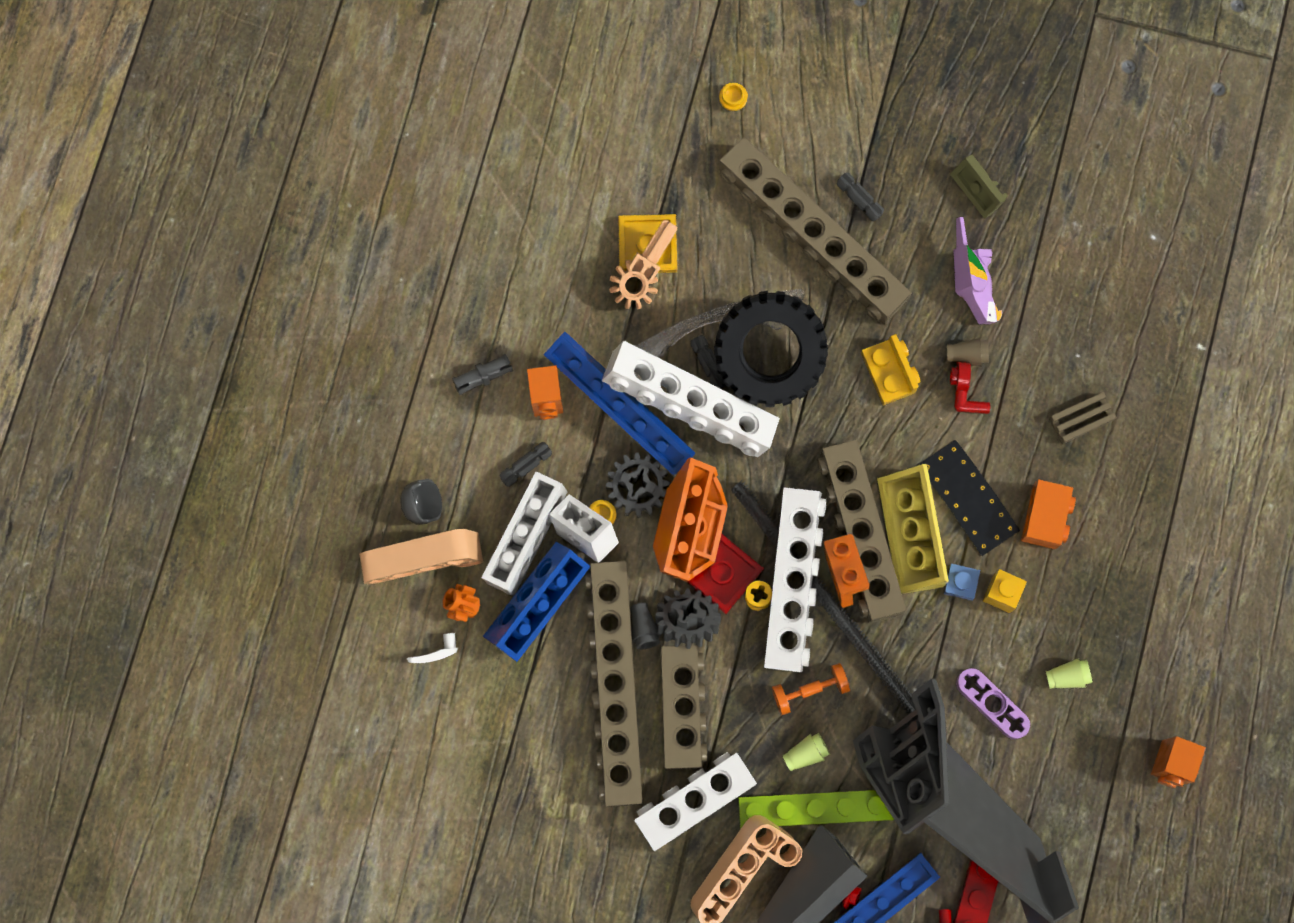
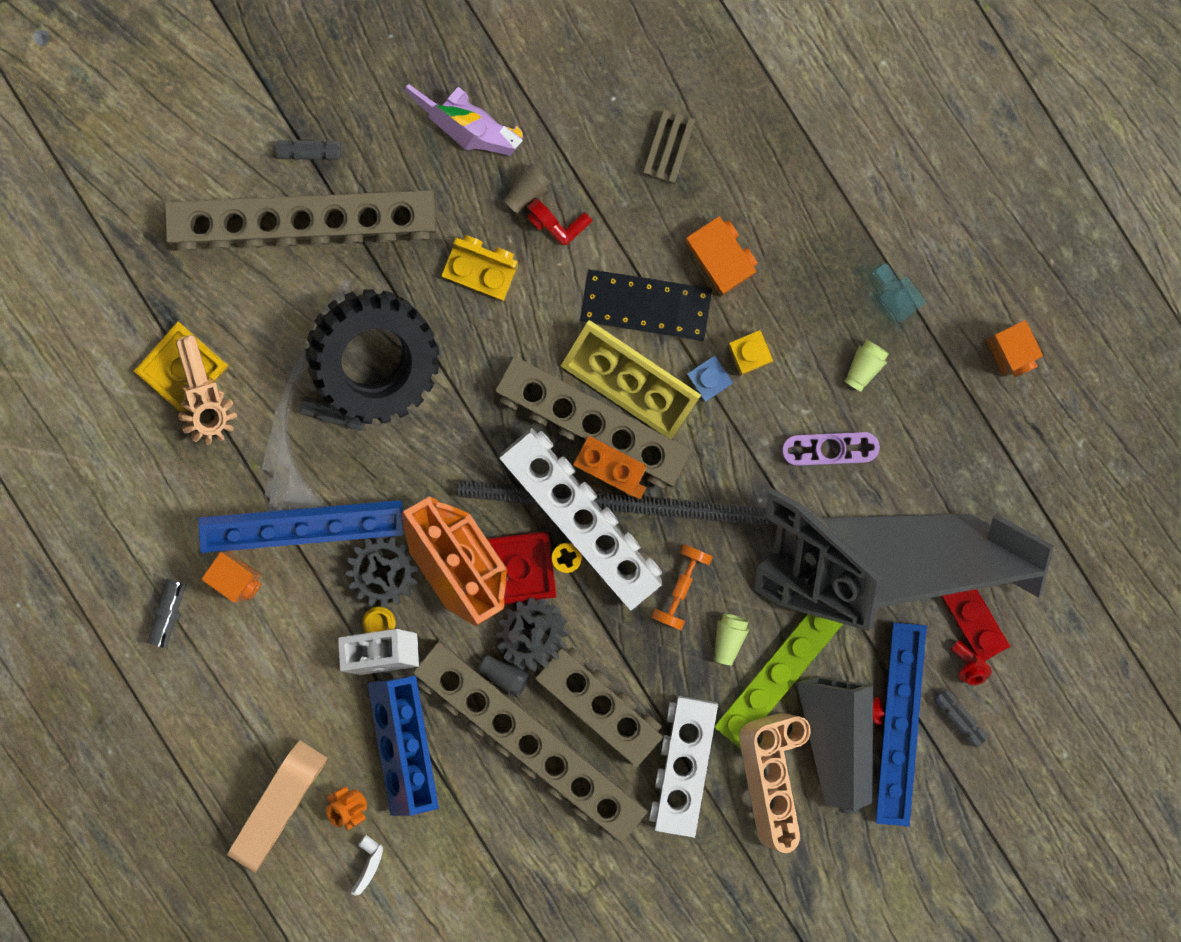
camera: 45 degrees left, 10 degrees up
(421, 502) = (230, 764): dark grey hair -> none
(524, 534) = (337, 705): white brick -> none
(525, 464) = (277, 647): dark grey axle -> none
(732, 411) = (426, 424): white brick -> none
(733, 96) = (119, 173): yellow plate -> none
(978, 186) = (392, 42): olive plate -> none
(1135, 657) = (900, 296): none -> clear light blue plate

